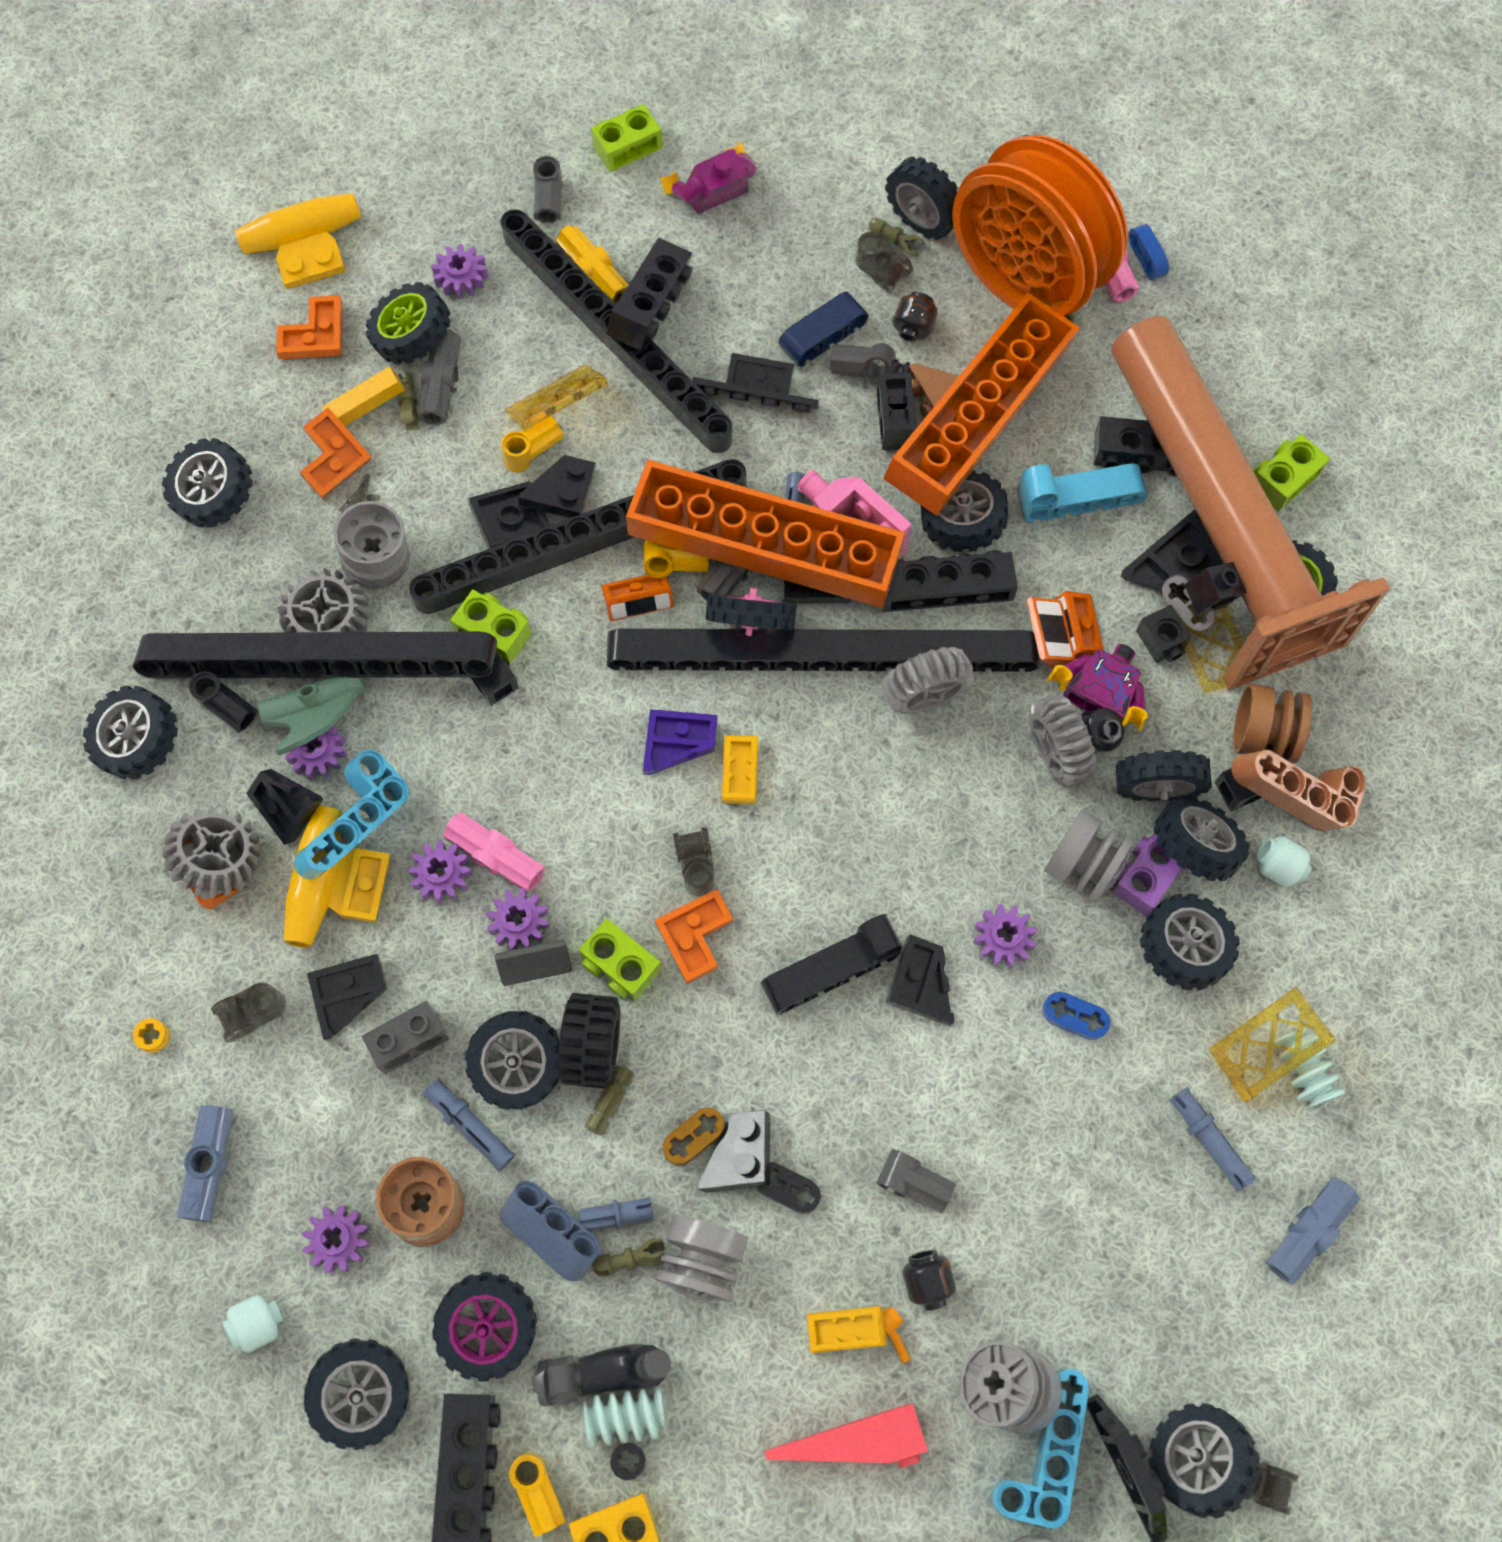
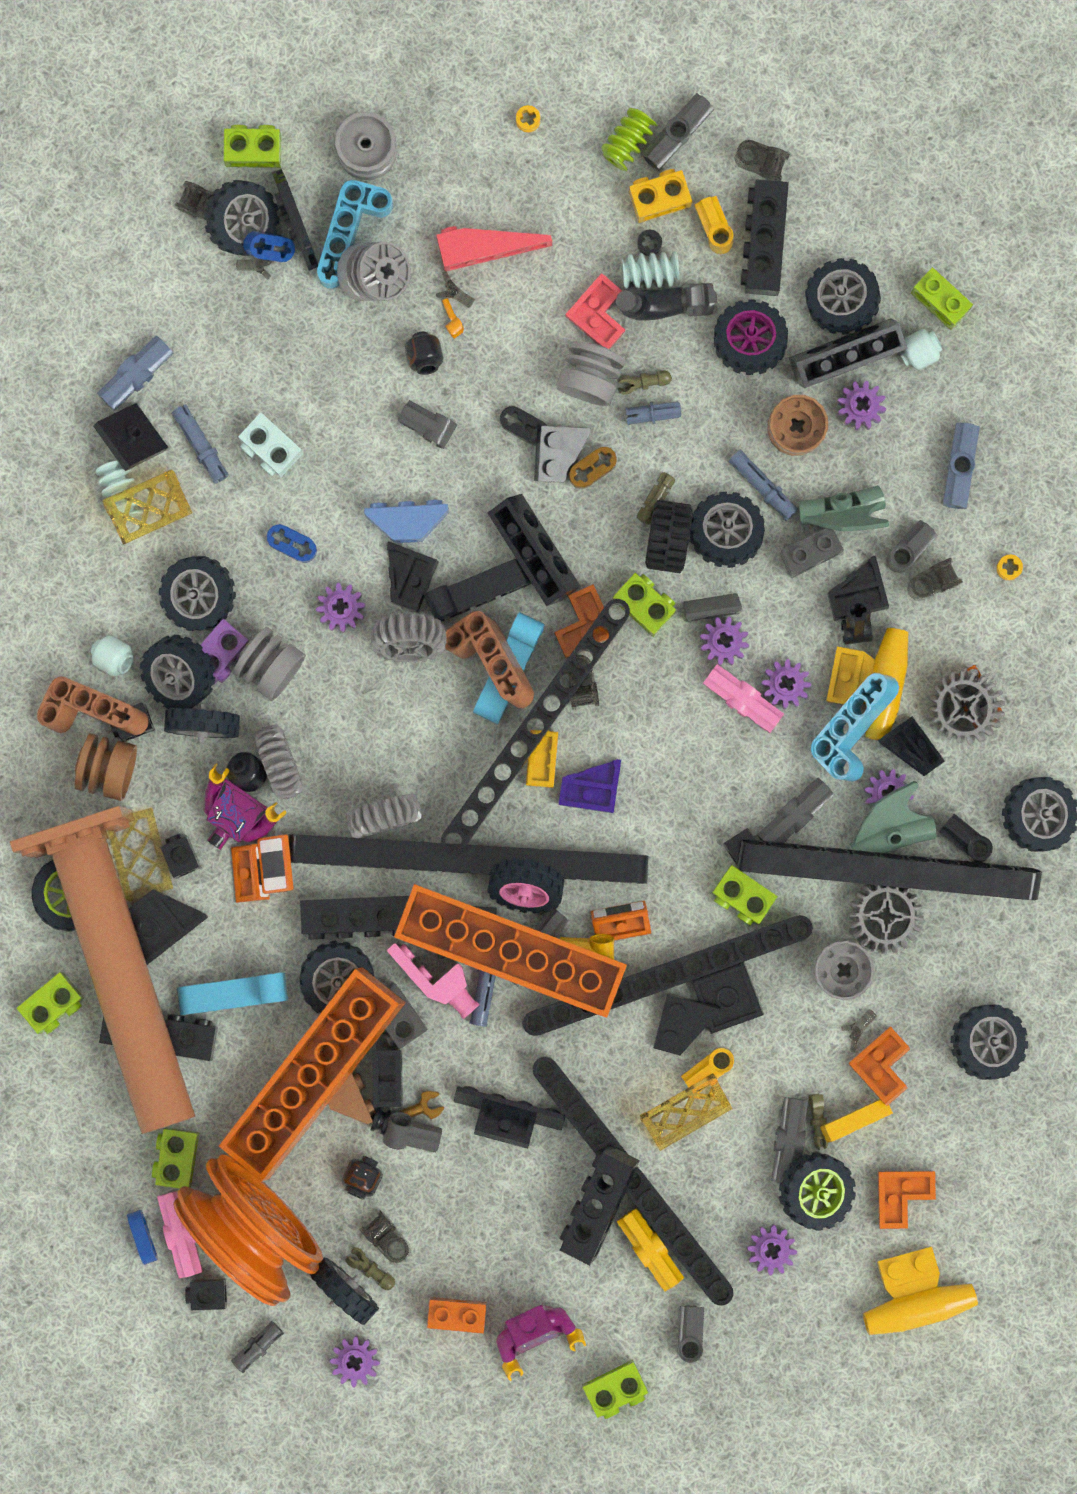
camera: 175 degrees left, 15 degrees up
(219, 1398) = (941, 298): none -> lime brick
(274, 1055) = (912, 546): none -> dark grey piece
(348, 945) = (857, 623): none -> black piece
(350, 1309) = (848, 353): none -> black brick
(357, 1089) = (845, 511): none -> sand green pin
(429, 719) = (797, 812): none -> dark grey piece
(550, 1231) = (702, 402): sand blue beam -> none
(706, 1350) = (590, 313): none -> coral plate
(747, 808) = (538, 712): none -> black beam
(764, 1019) = (534, 549): none -> black brick
(786, 873) = (522, 641): none -> medium azure beam
(800, 193) = (456, 1315): none -> orange brick
(809, 866) = (495, 662): none -> nougat beam
(823, 327) = (445, 1171): dark blue beam -> none
(846, 1329) = (487, 322): yellow plate -> none
(852, 393) = (422, 1106): none -> pearl gold bar
(873, 475) = (408, 1015): none -> dark grey brick
(895, 1372) = (455, 292): none -> clear smoke bar
(902, 145) = (352, 1372): none -> medium lavender gear
(917, 892) = (408, 637): none -> light grey gear
(932, 1049) = (407, 522): none -> medium blue slope
(1114, 321) = (183, 1160): none -> lime brick
(1115, 1148) = (274, 441): none -> light aqua brick
(1159, 1411) = (268, 252): none -> blue beam
(1169, 1396) = (254, 265): none -> clear smoke bar
(1181, 607) = (158, 880): light grey beam -> none
(1215, 588) = (138, 880): black brick -> none
(1307, 1139) = (130, 436): none -> black plate

